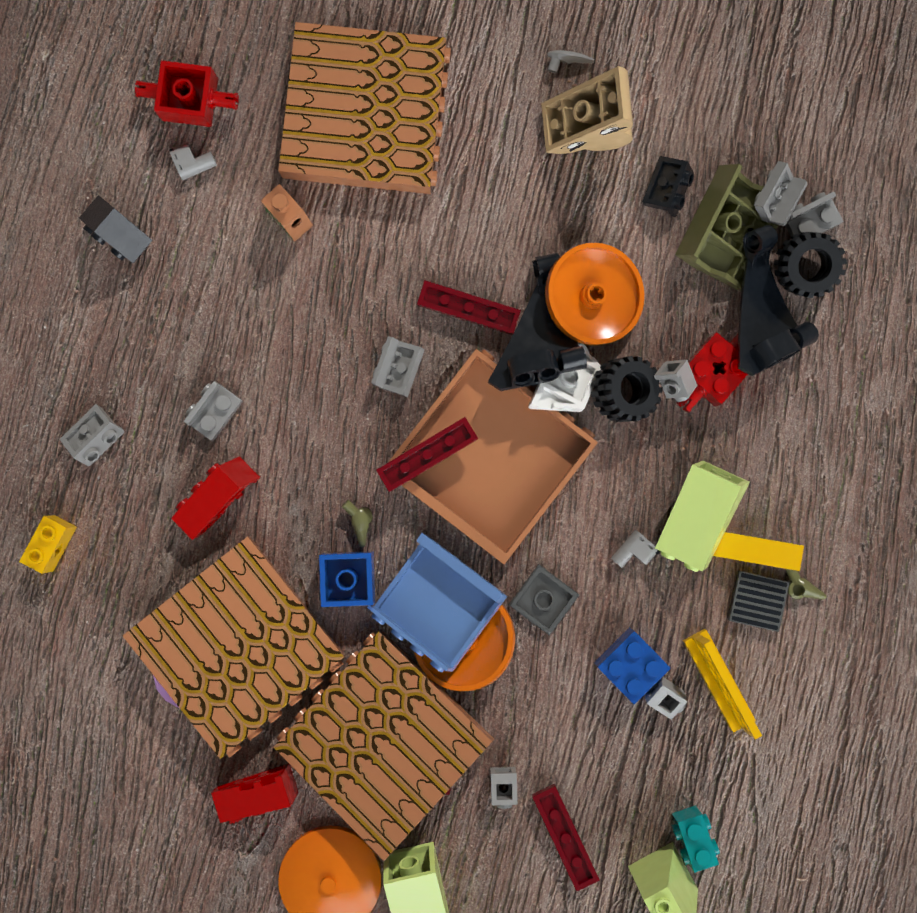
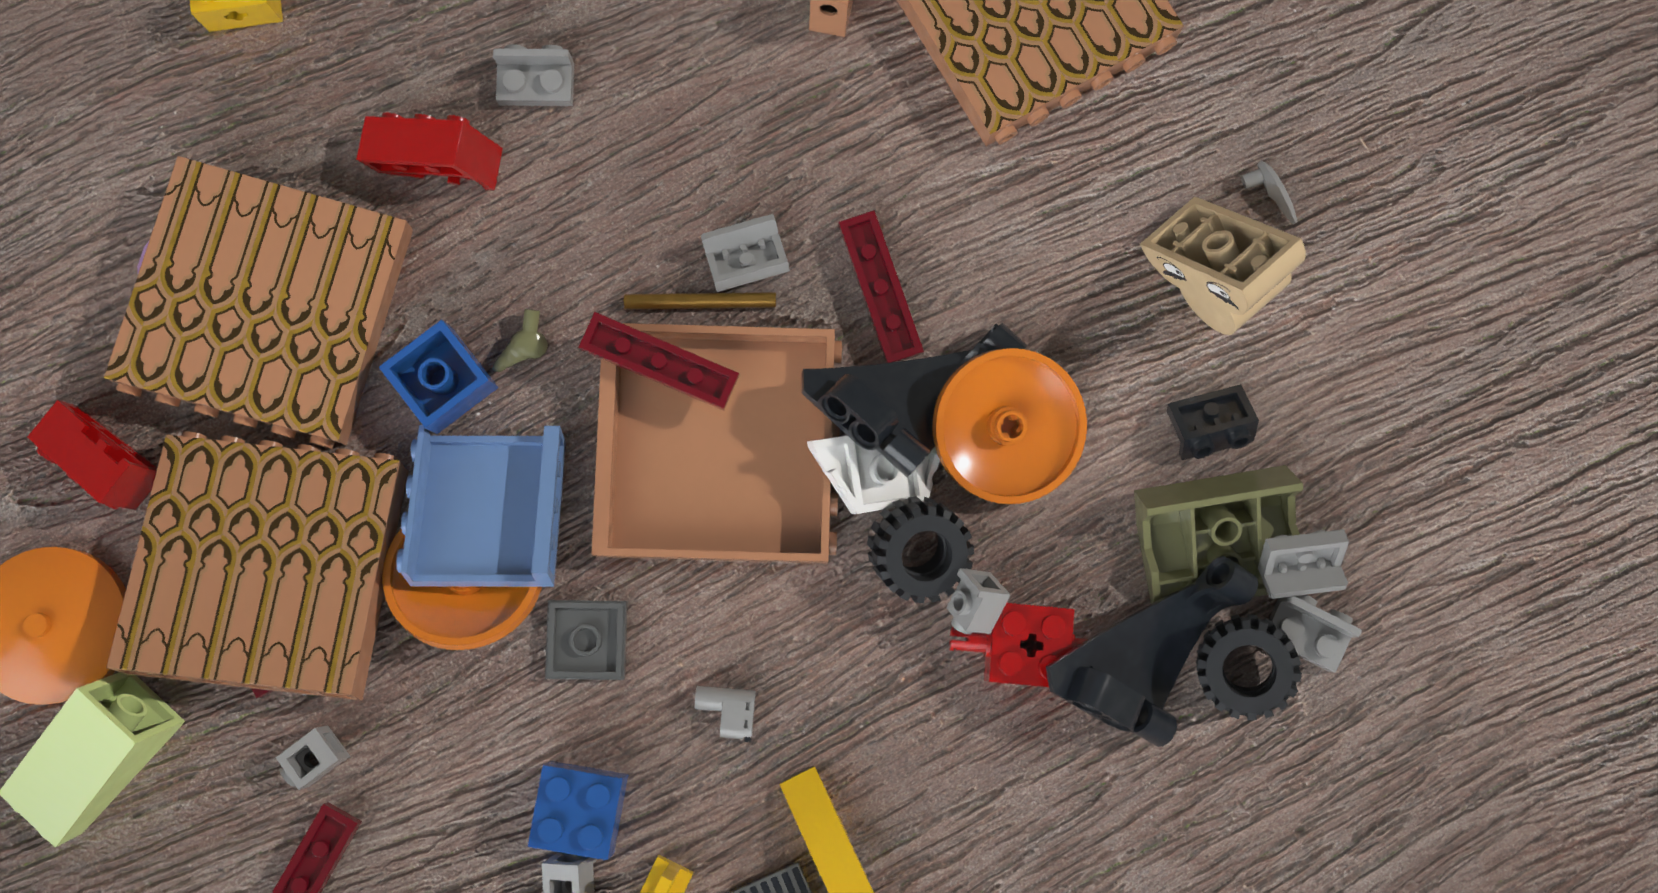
camera: 50 degrees right, 5 degrees down
(404, 409) = (700, 300): none -> pearl gold bar
(701, 515) = (831, 758): yellowish green slope -> none

